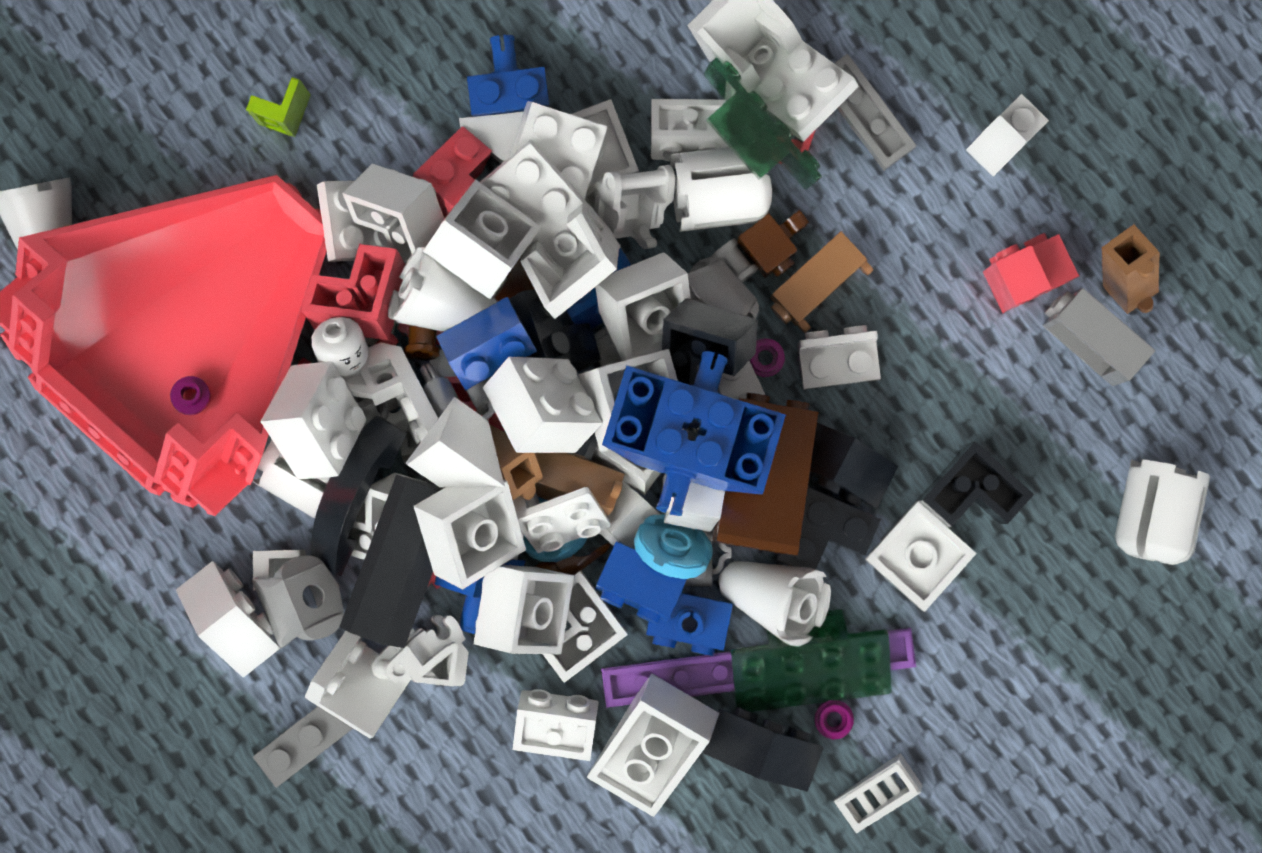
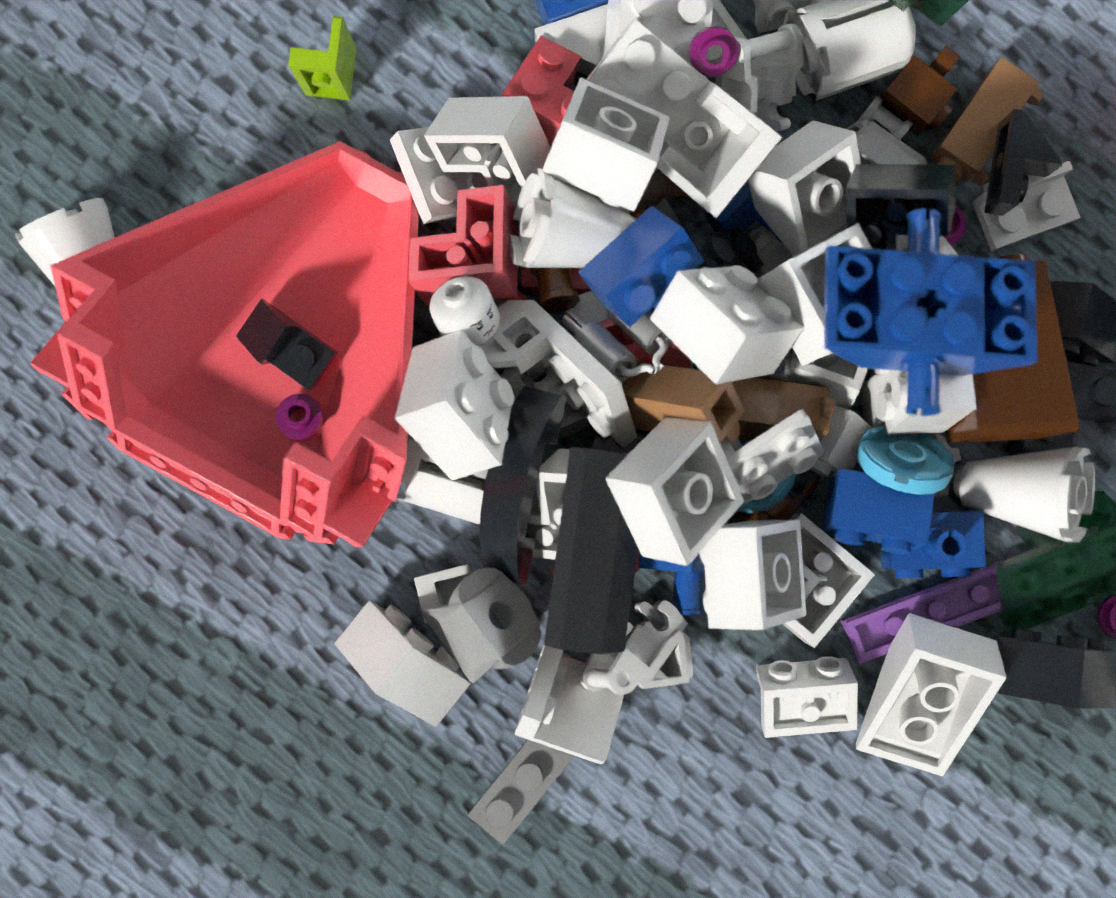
camera: 10 degrees left, 0 degrees up
(193, 333) = (285, 344): none -> black slope
(458, 450) = (642, 399): white slope -> none
(594, 170) = (703, 41): none -> magenta plate
(829, 315) = (1017, 151): none -> black slope

